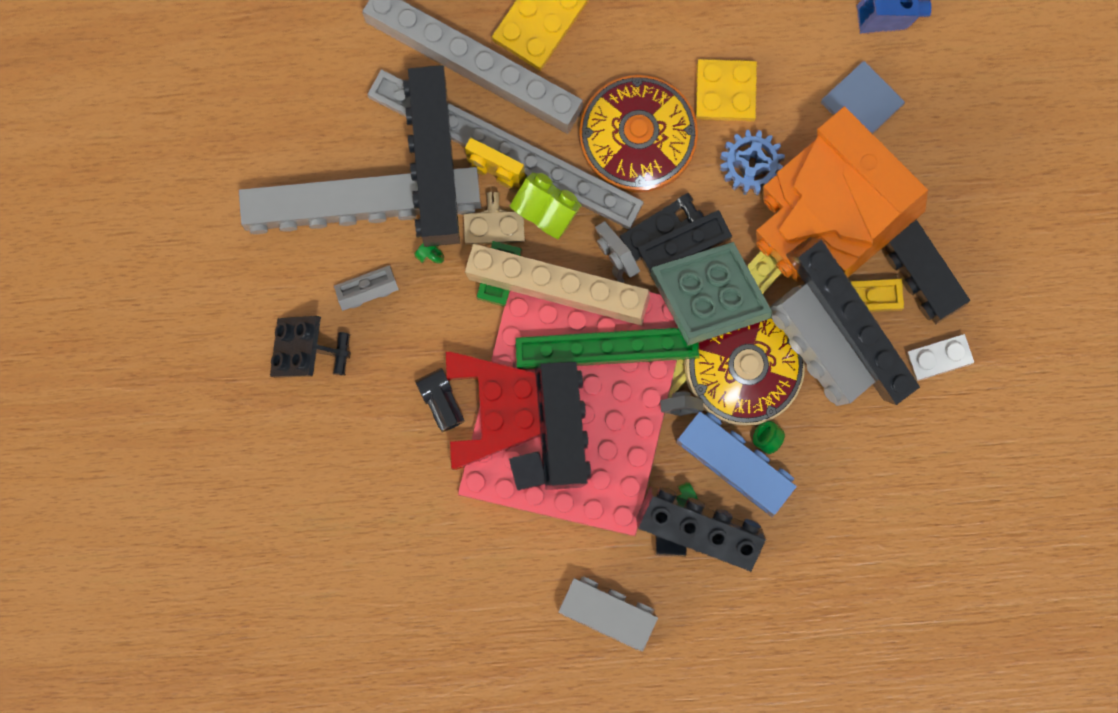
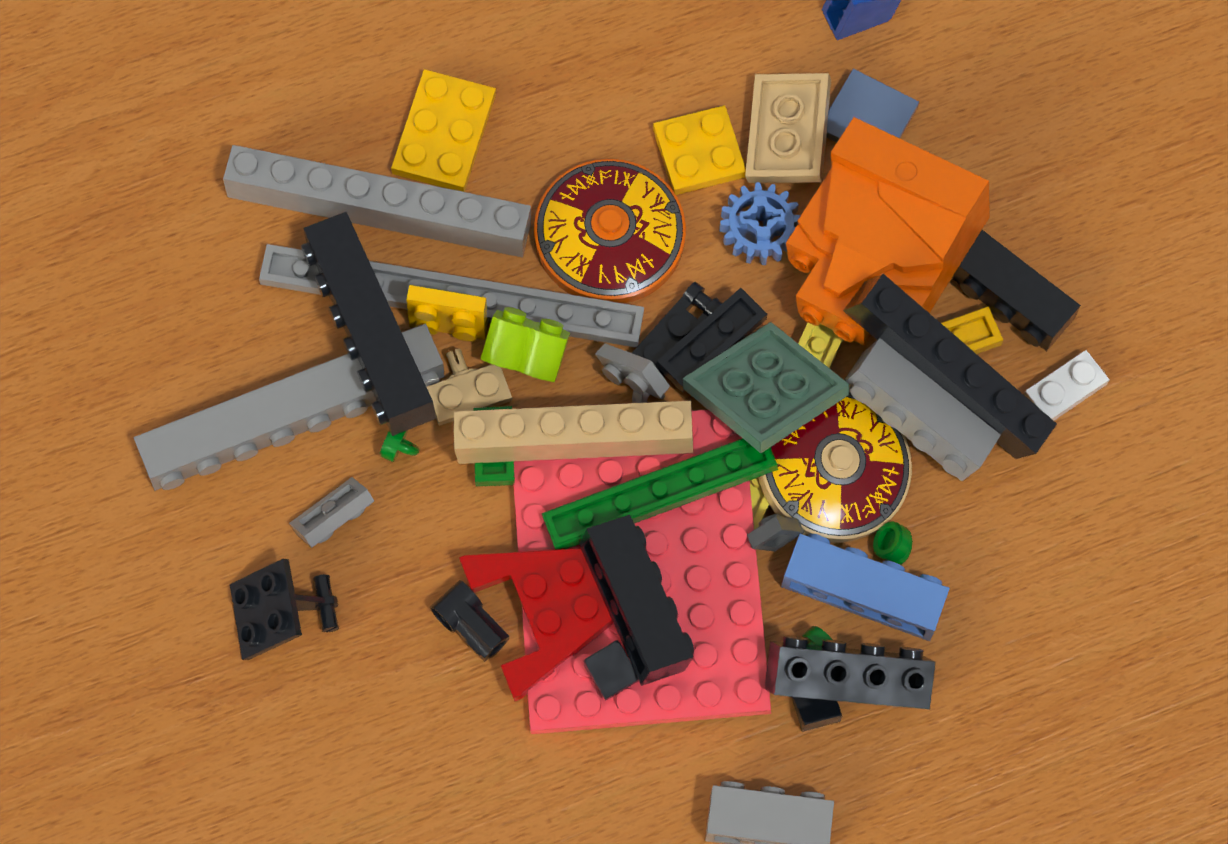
camera: 25 degrees left, 10 degrees down
(798, 94) = (788, 128): none -> tan plate

